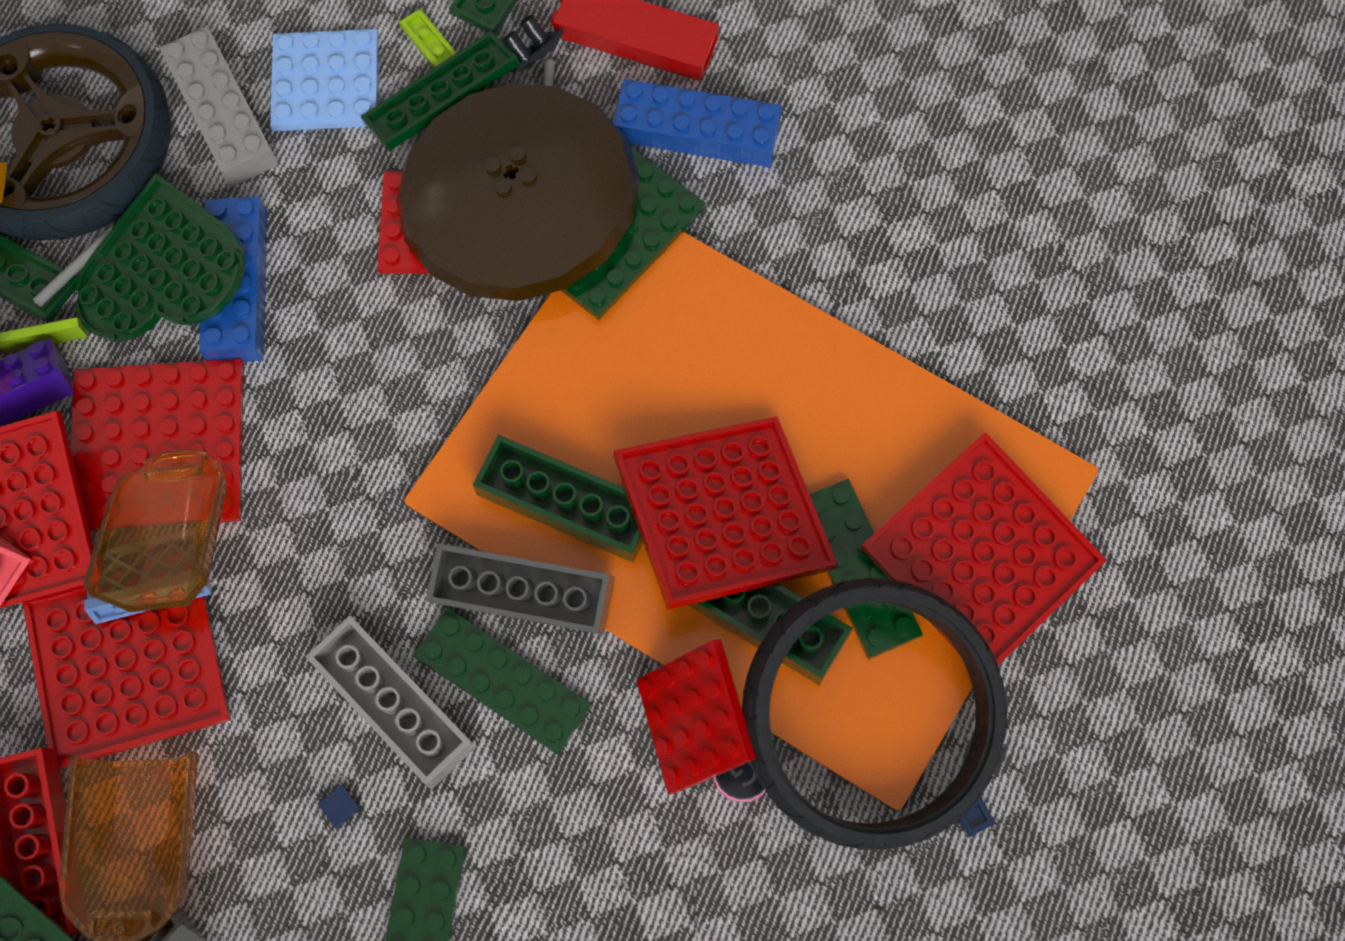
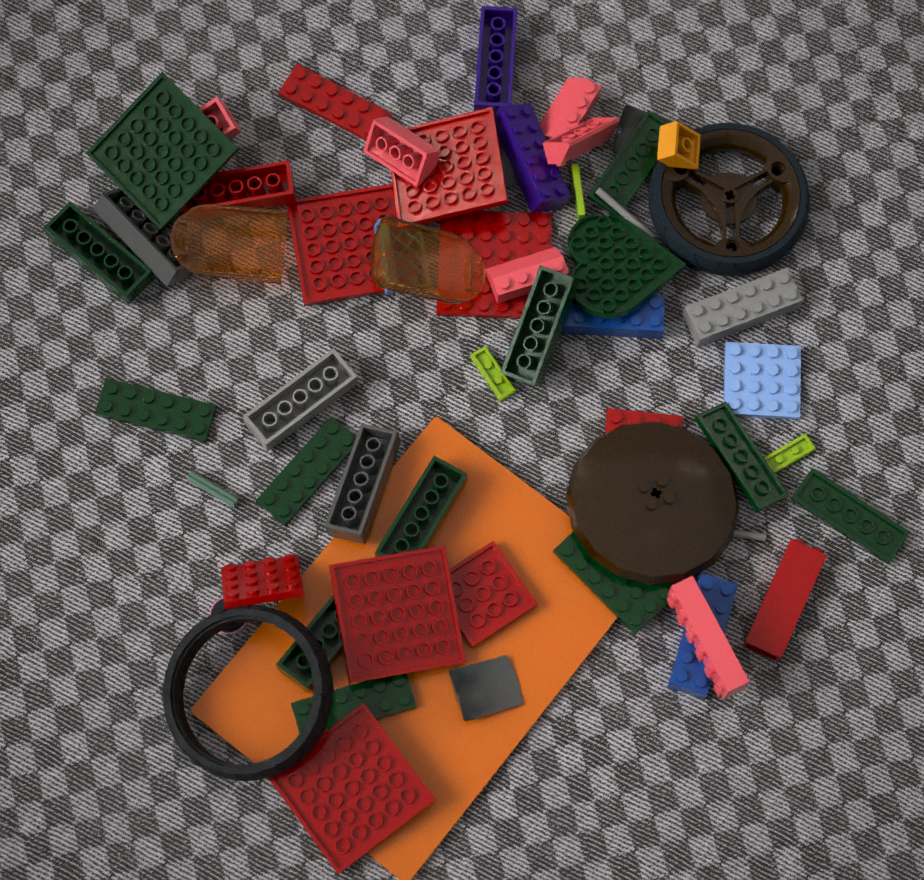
camera: 90 degrees right, 0 degrees up
(173, 388) = (517, 276): none -> coral slope
(259, 353) = (540, 326): none -> dark green brick
(331, 430) = (491, 373): none -> lime tile
(339, 806) = (241, 367): dark blue tile -> none
(542, 43) = (776, 531): black connector -> none
(543, 824) = (212, 489): none -> sand green axle
(670, 395) = (488, 594): none -> red plate
(711, 95) = (707, 638): none -> coral brick
(809, 389) = (485, 688): none -> dark grey piece
(976, 819) = (179, 760): dark blue tile -> none

